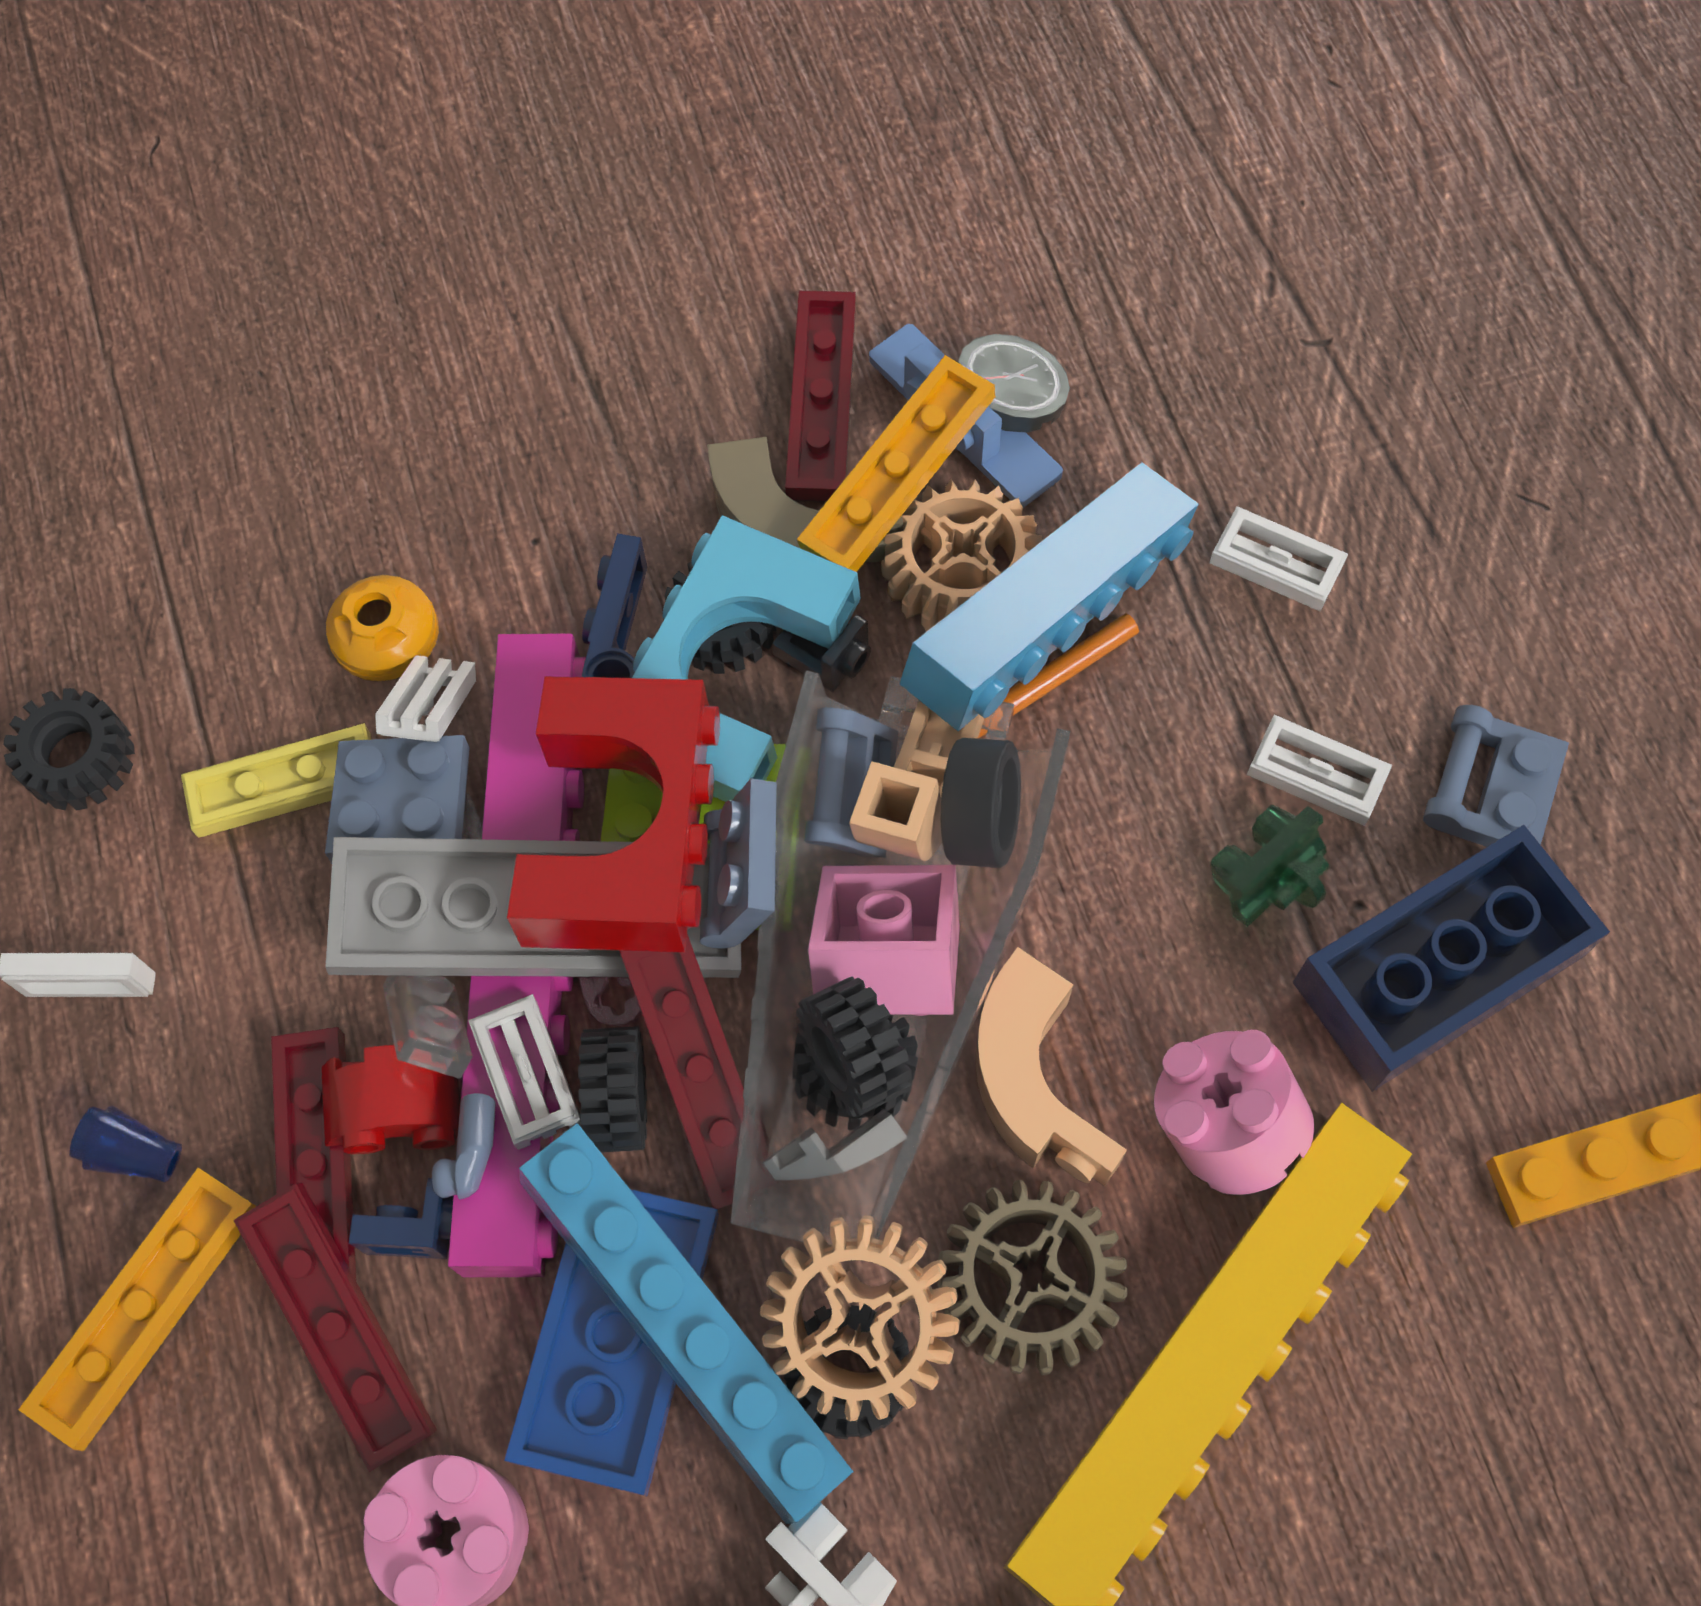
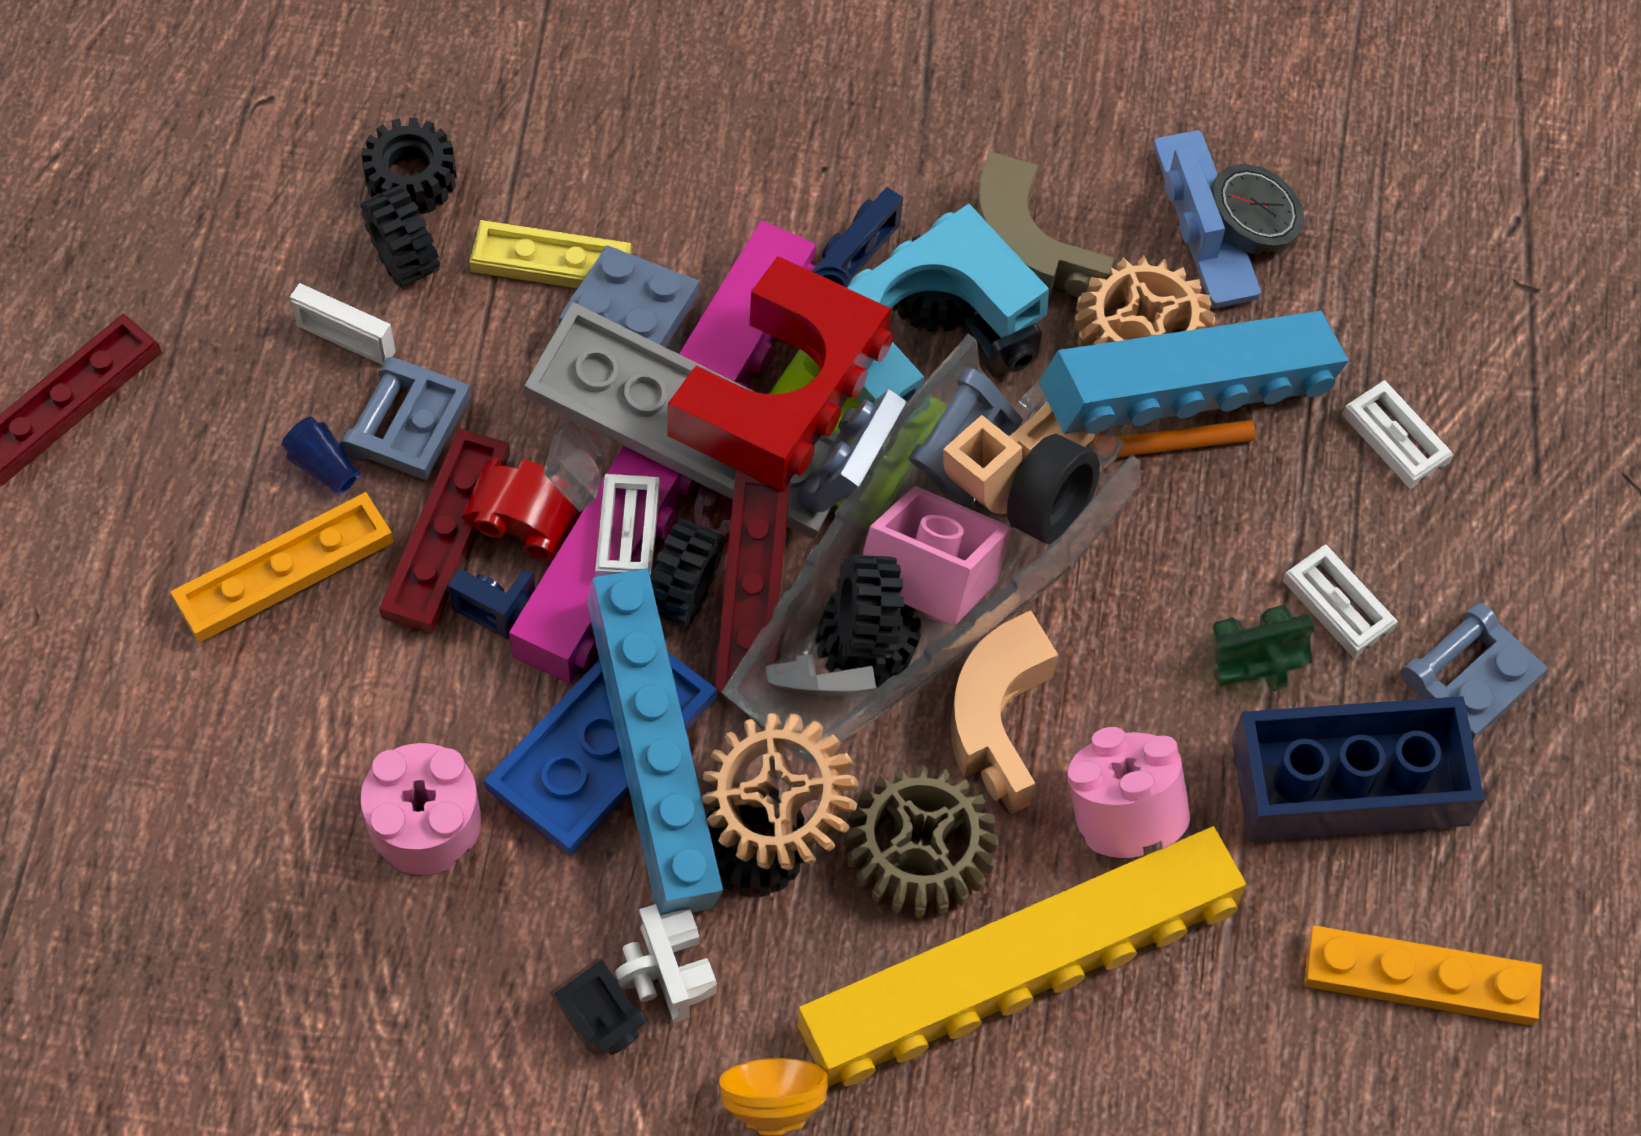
camera: 20 degrees right, 5 degrees down
(95, 840) = (400, 236): none -> black tyre
(225, 1051) = (419, 426): none -> sand blue plate
(335, 1326) = (410, 637): dark red tile -> none
(387, 648) = (677, 197): light orange piece -> none
(414, 698) = (677, 239): white tile -> none
(474, 1147) = (568, 556): sand blue arm -> none
(820, 394) = (1100, 155): dark red plate -> none
(898, 465) = (1124, 227): light orange plate -> none

